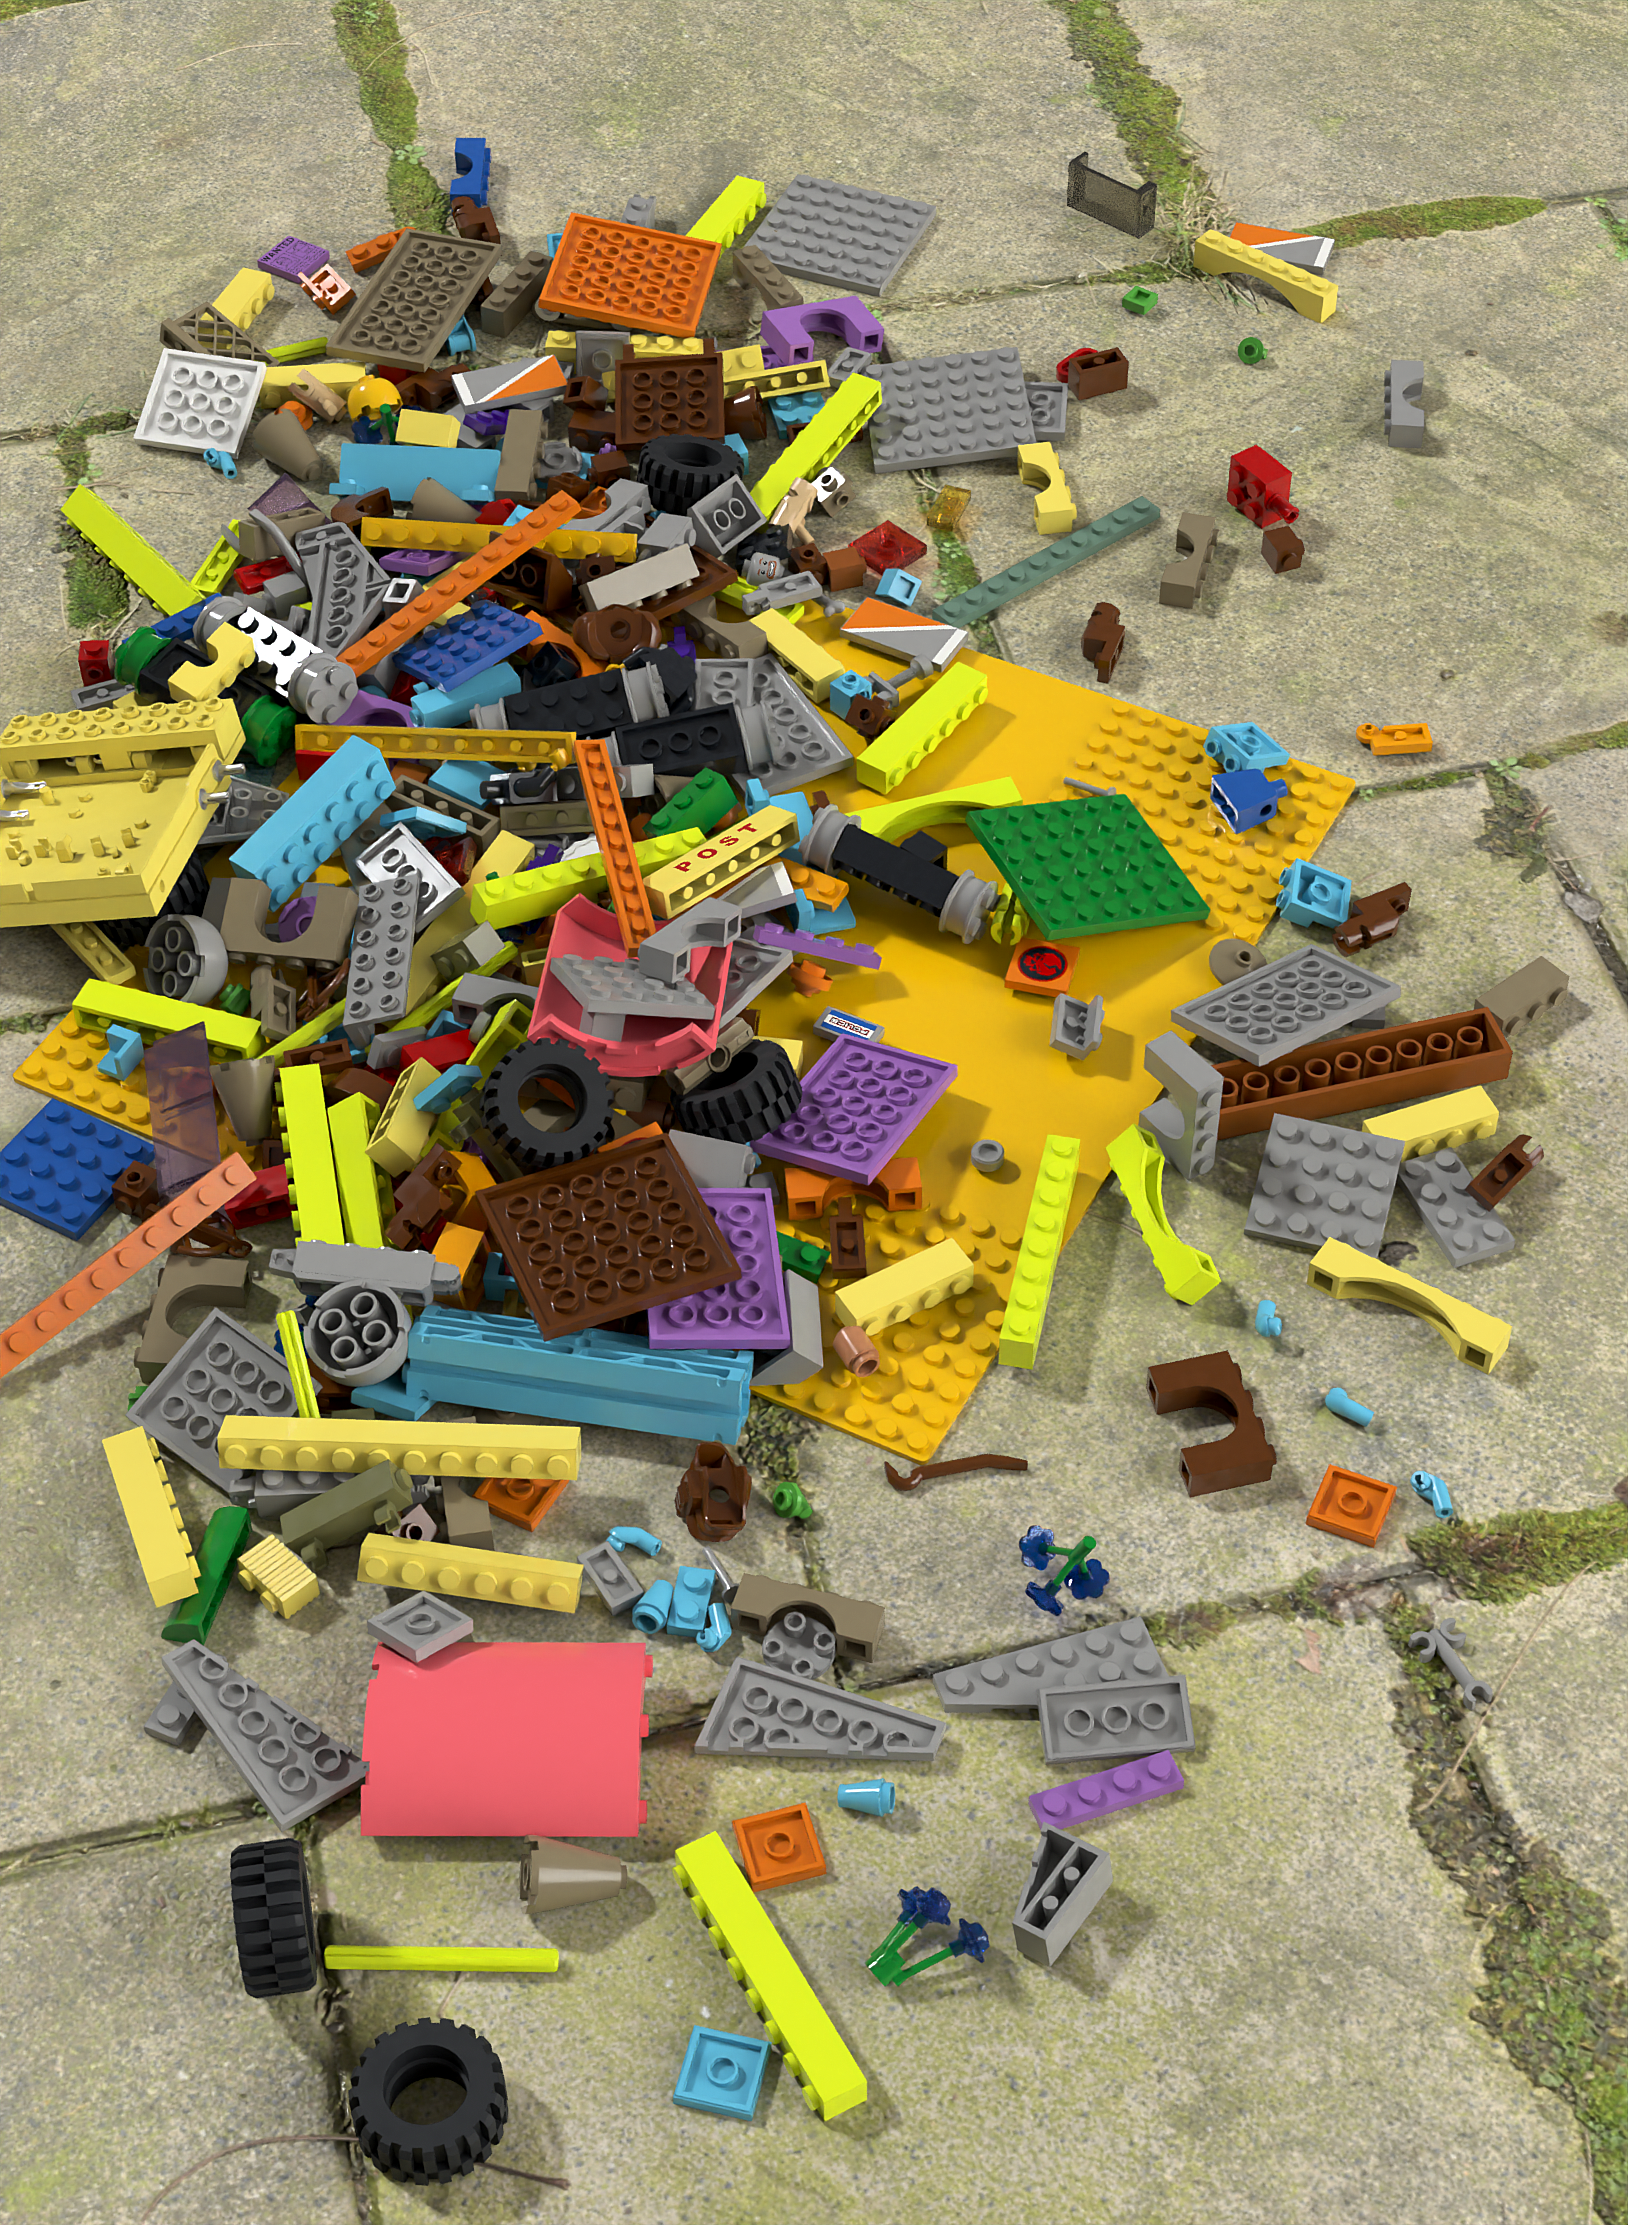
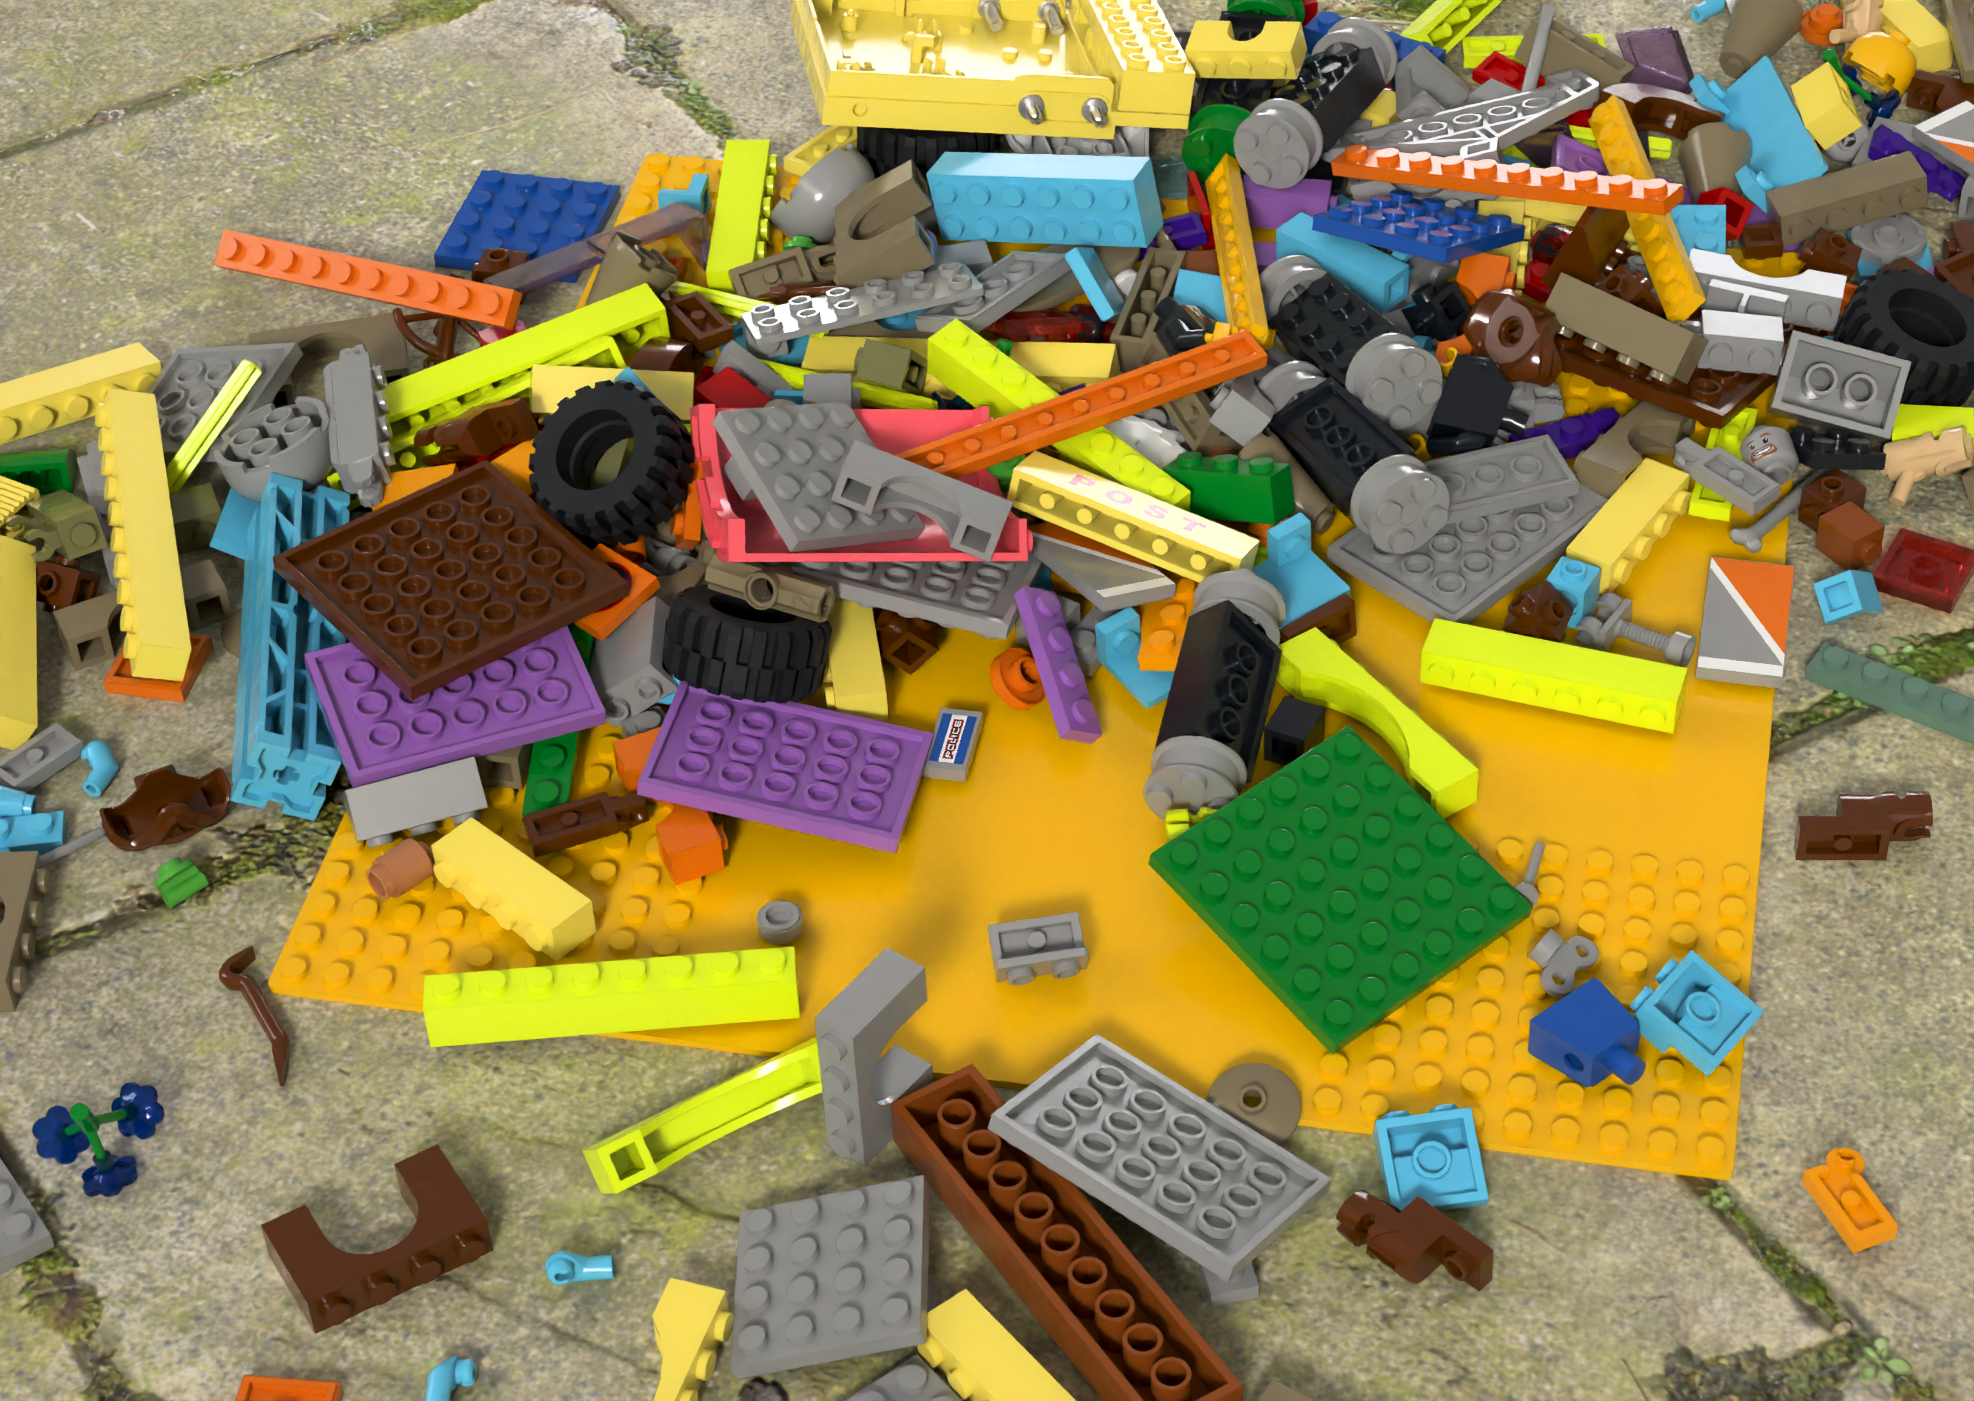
camera: 75 degrees right, 5 degrees down
(1042, 967) = (1141, 904): tile -> none
(1168, 794) = (1562, 961): none -> light grey piece

